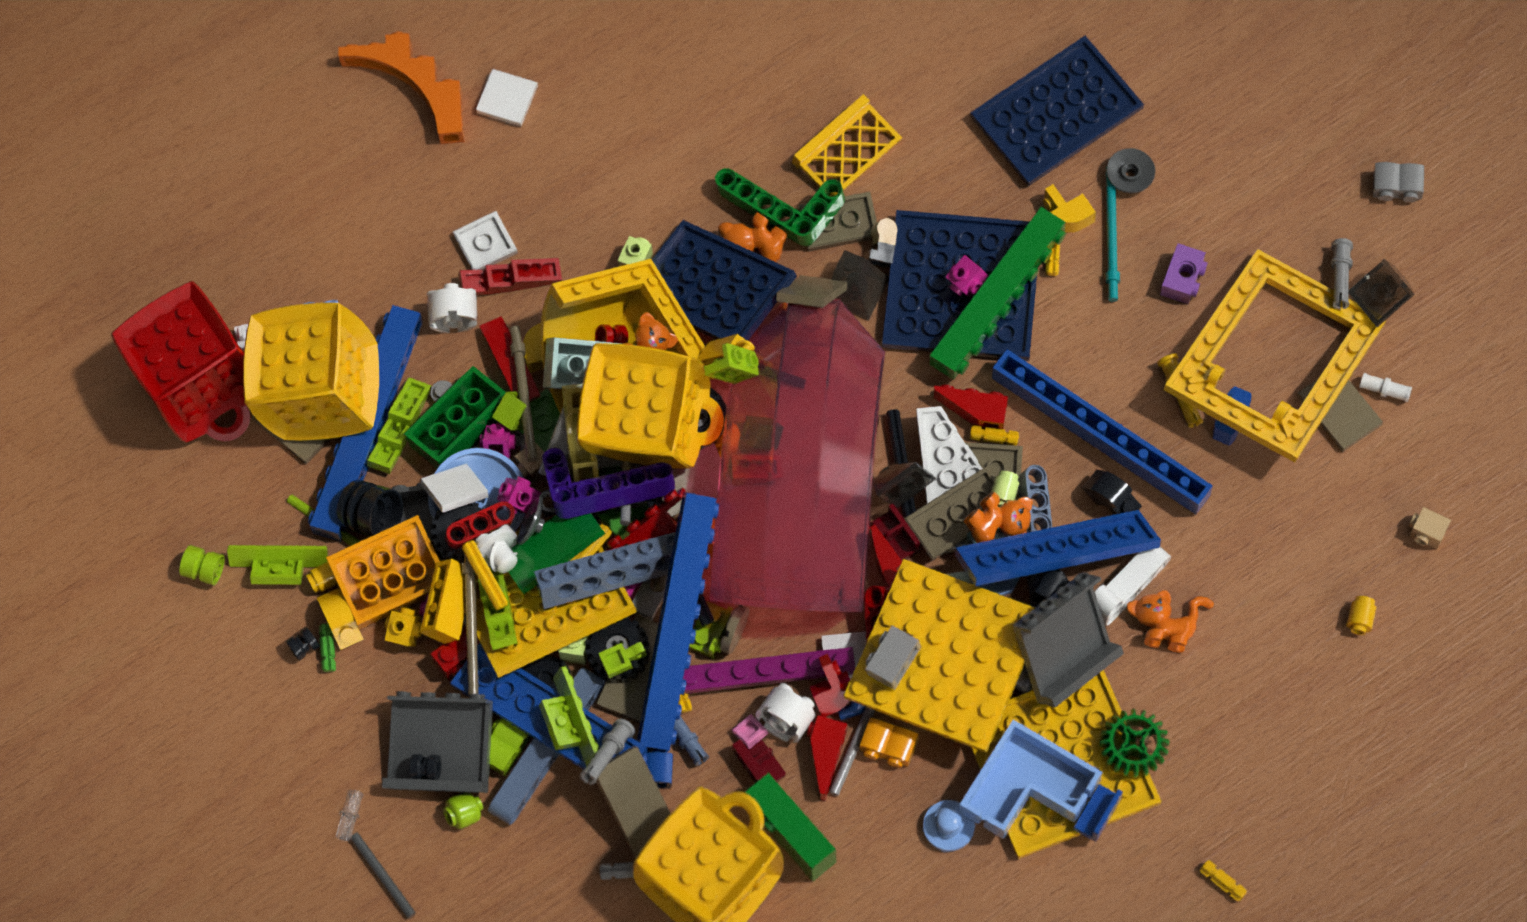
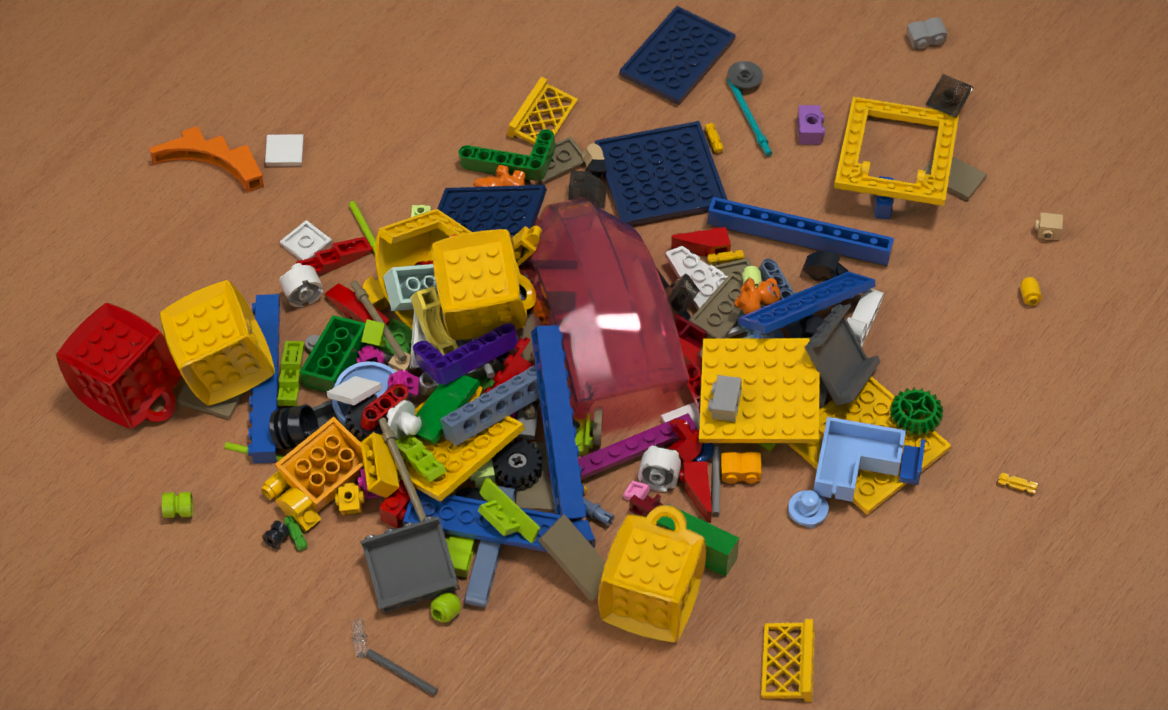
camera: 25 degrees left, 15 degrees down
(276, 563) = (234, 486): lime bracket -> none
(425, 767) = (406, 583): black wheel -> none
(484, 575) = (403, 434): yellow axle -> none
(531, 522) = (421, 394): dark grey dish -> none
(564, 240) = (365, 228): none -> lime bar
(612, 744) = (545, 517): light grey pin -> none
(617, 659) = (525, 465): lime plate -> none
(619, 870) = (582, 611): light grey axle -> none
(735, 366) = (534, 242): lime bracket -> none
(812, 291) = (561, 197): dark tan tile -> none
(966, 277) = (665, 162): dark pink brick -> none
(998, 293) = (689, 168): green brick -> none
(1076, 213) = (713, 112): yellow brick -> none
(1155, 612) = (890, 331): orange animal -> none
(1191, 414) = (828, 182): yellow pin -> none
(1341, 265) = (914, 90): light grey pin -> none
(1385, 387) = (978, 153): white pin -> none

